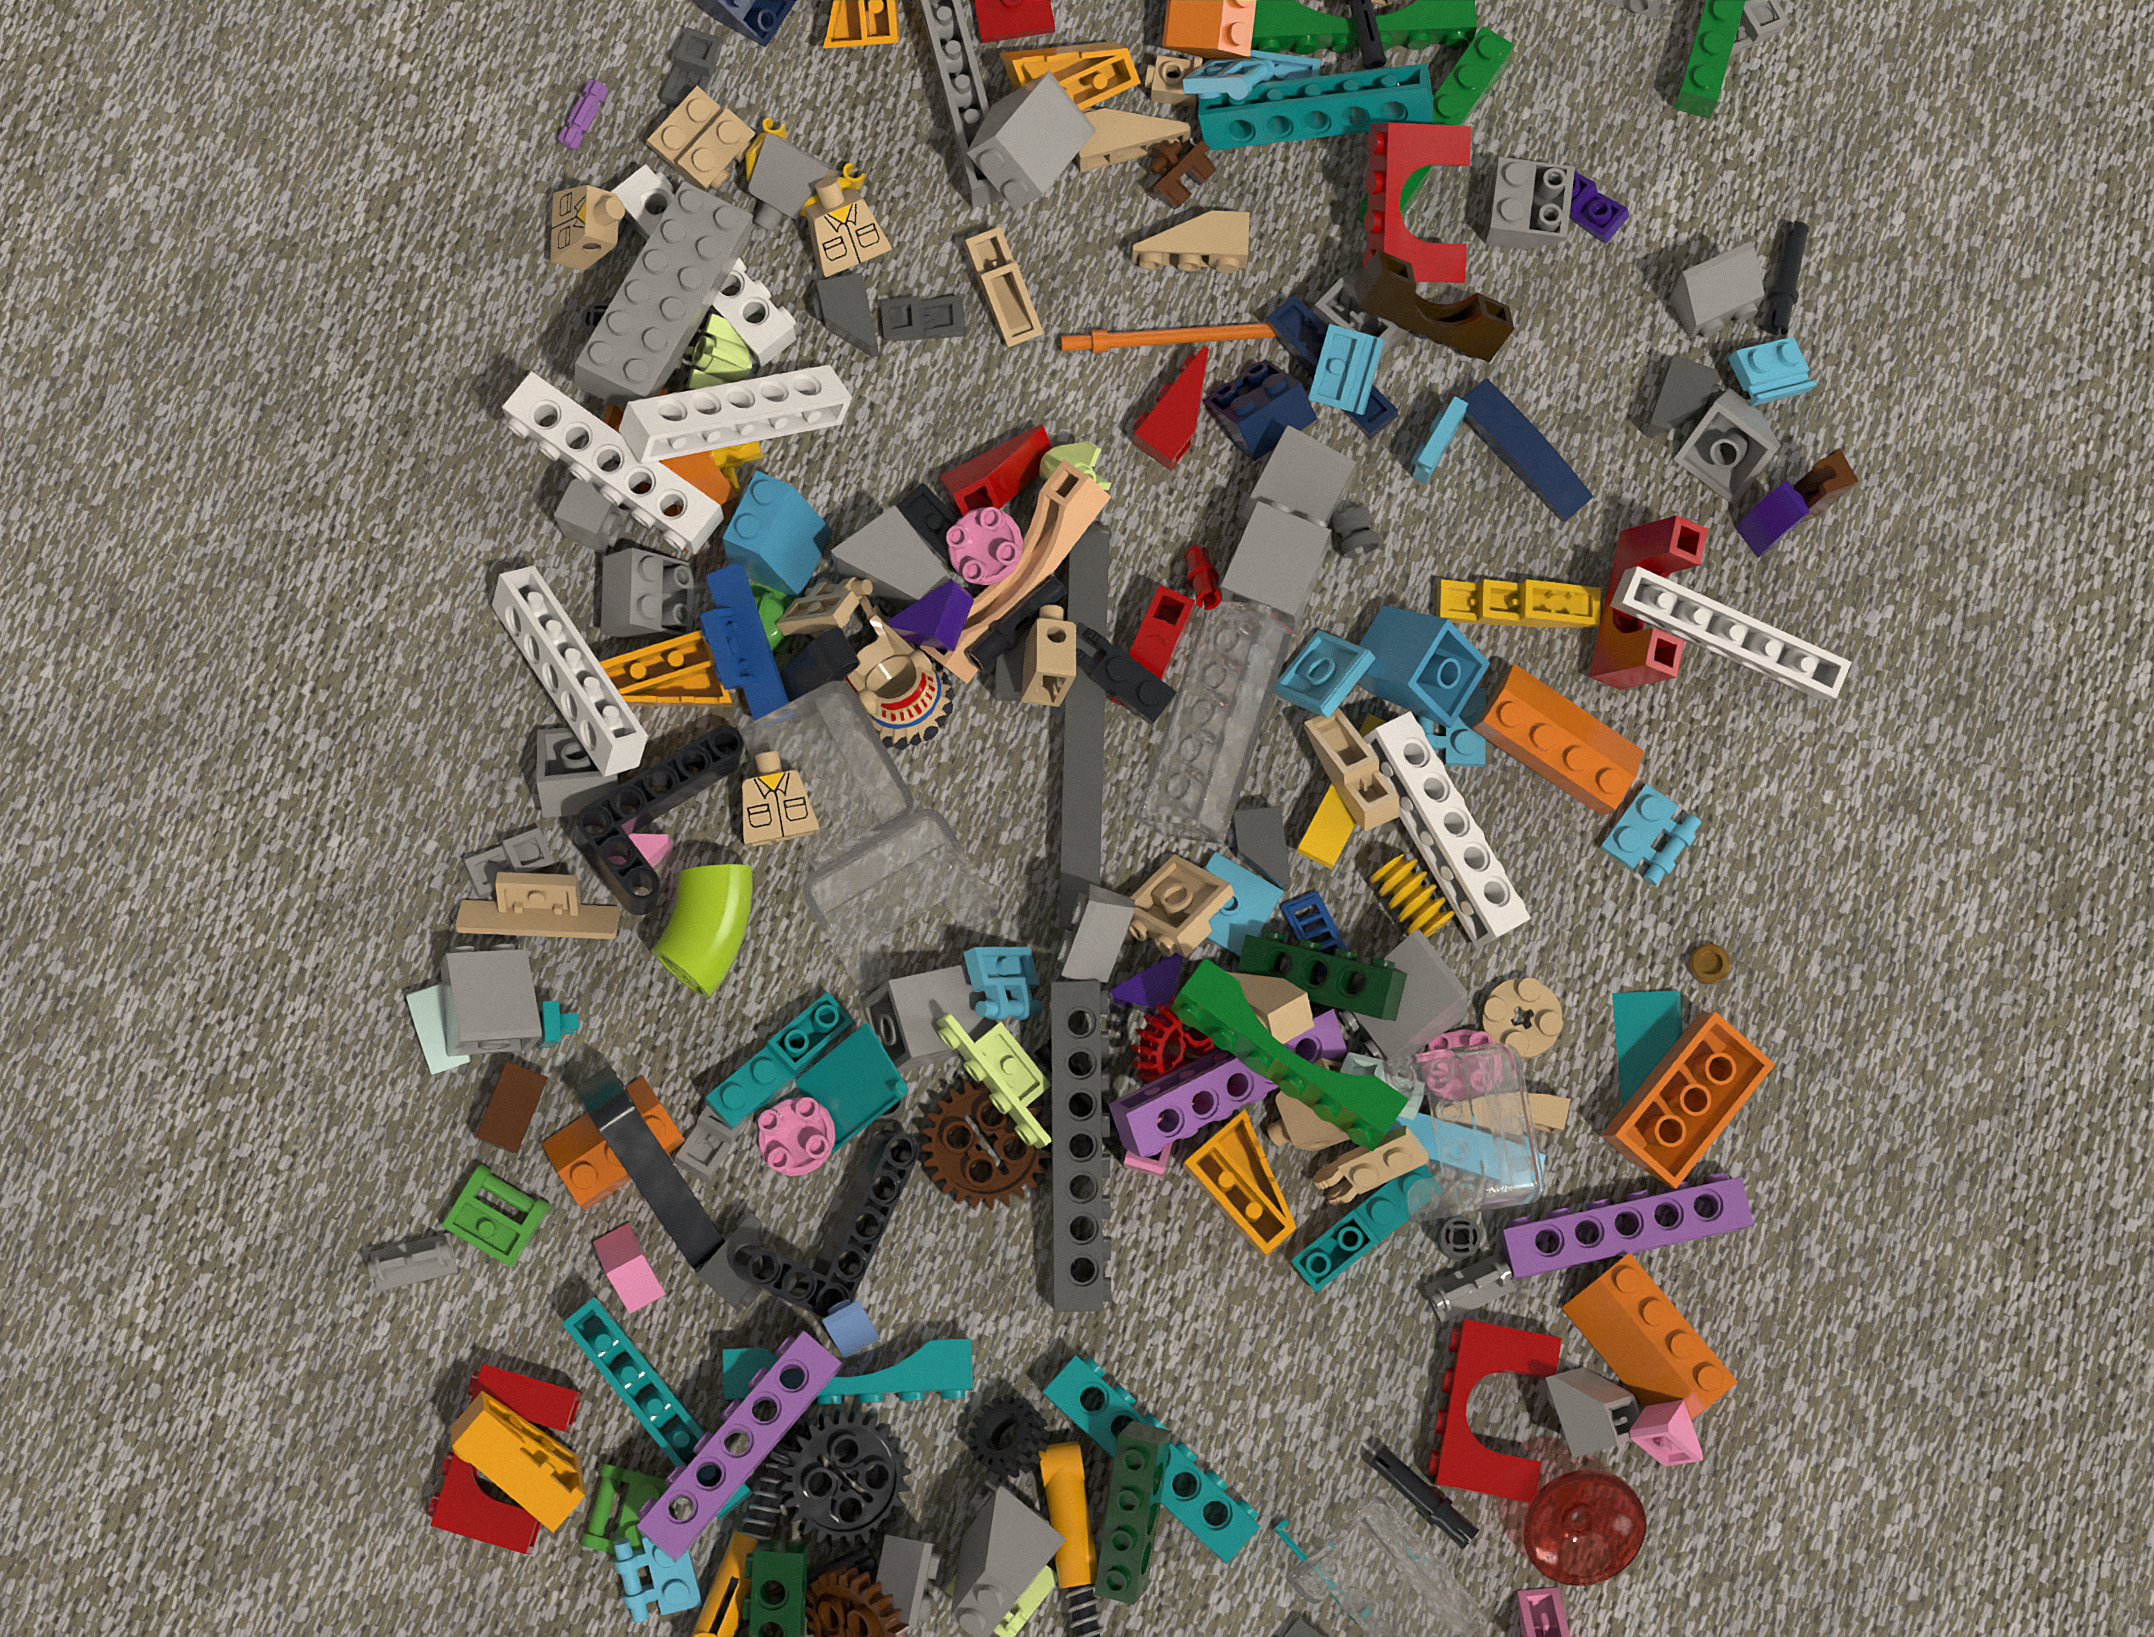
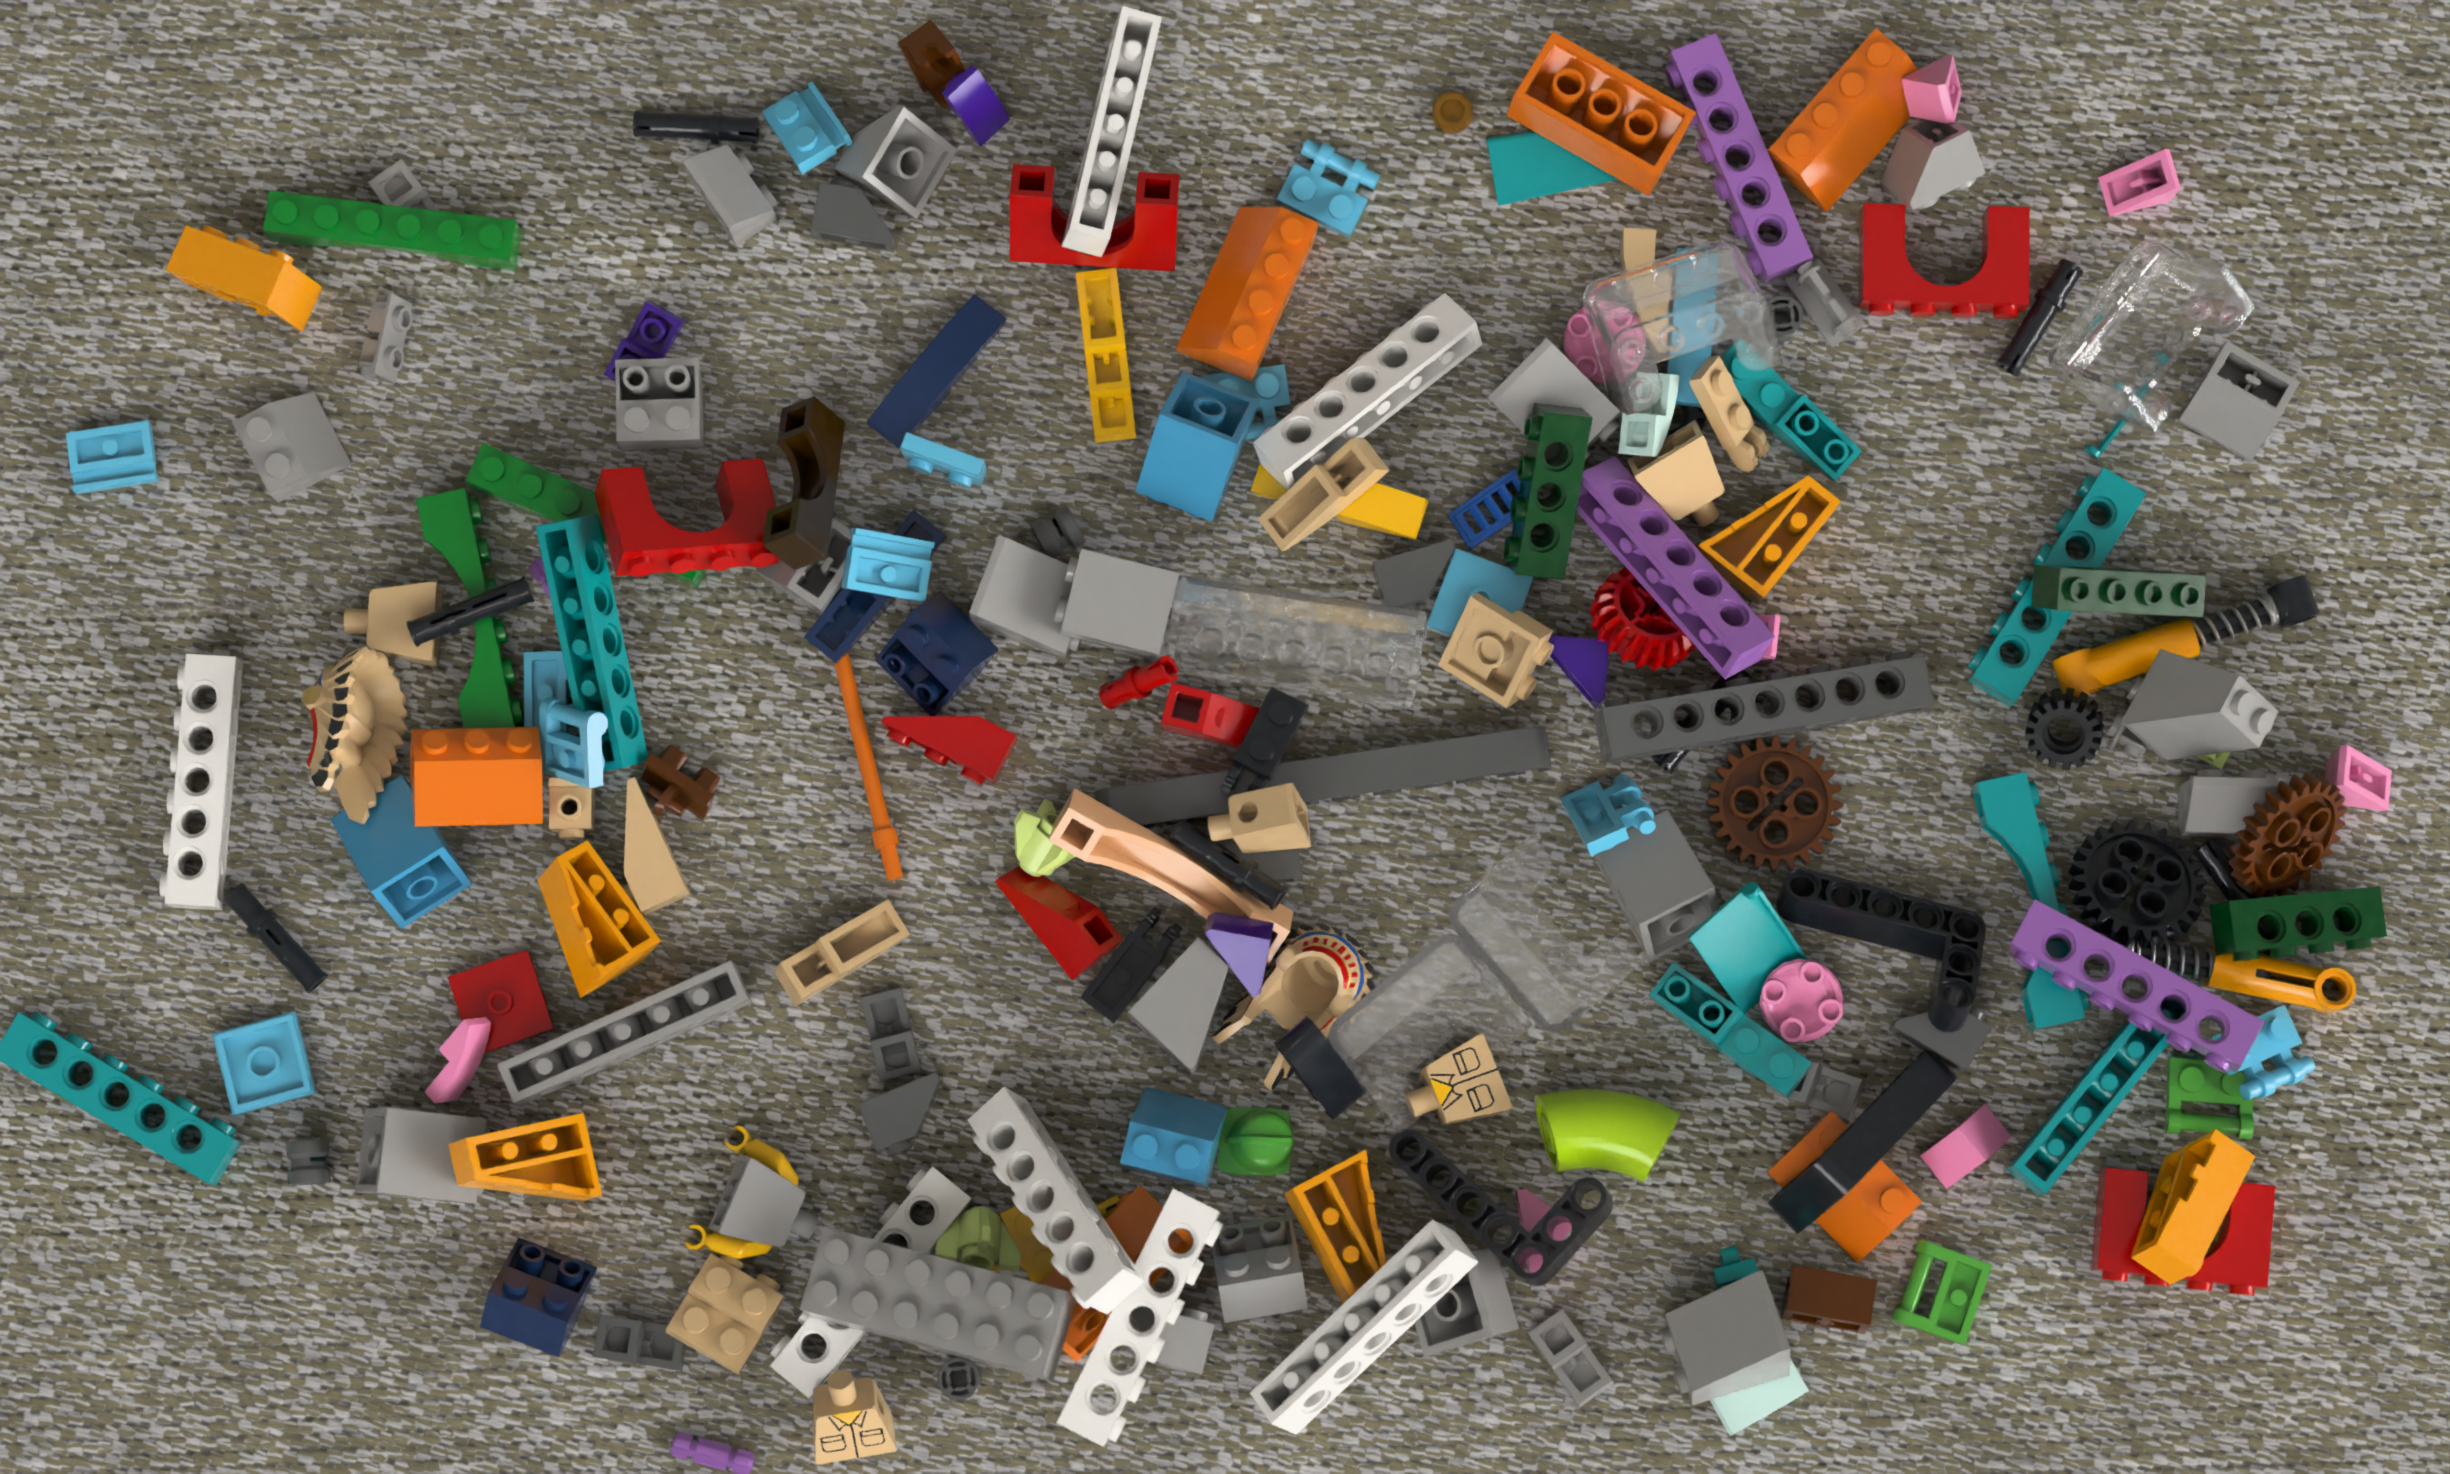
camera: 100 degrees left, 5 degrees up
(412, 1262) = (2003, 1368): light grey hinge -> none
(538, 907) = (1618, 1314): tan bracket -> none
(740, 642) = (1303, 1149): blue bracket -> none
(824, 606) = (1250, 1075): tan plate -> none
(842, 229) = (811, 1134): tan torso -> none
(850, 1327) = (1988, 905): medium blue slope -> none
(985, 546) = (1146, 914): bright pink dish -> none
(1006, 1072) = (1704, 790): yellowish green bracket -> none
(1029, 139) = (687, 943): light grey slope -> none
(1097, 934) = (1548, 725): light grey slope -> none
(1205, 241) = (753, 736): tan slope -> none
(1277, 1005) = (1590, 542): tan slope -> none
(1323, 673) = (1221, 539): medium azure plate -> none
(1354, 1103) = (1611, 581): green arch -> none
(1411, 896) = (1441, 413): yellow piece -> none
(1531, 997) = (1542, 313): tan plate -> none
(1585, 1547) = (2042, 157): clear red dish -> none

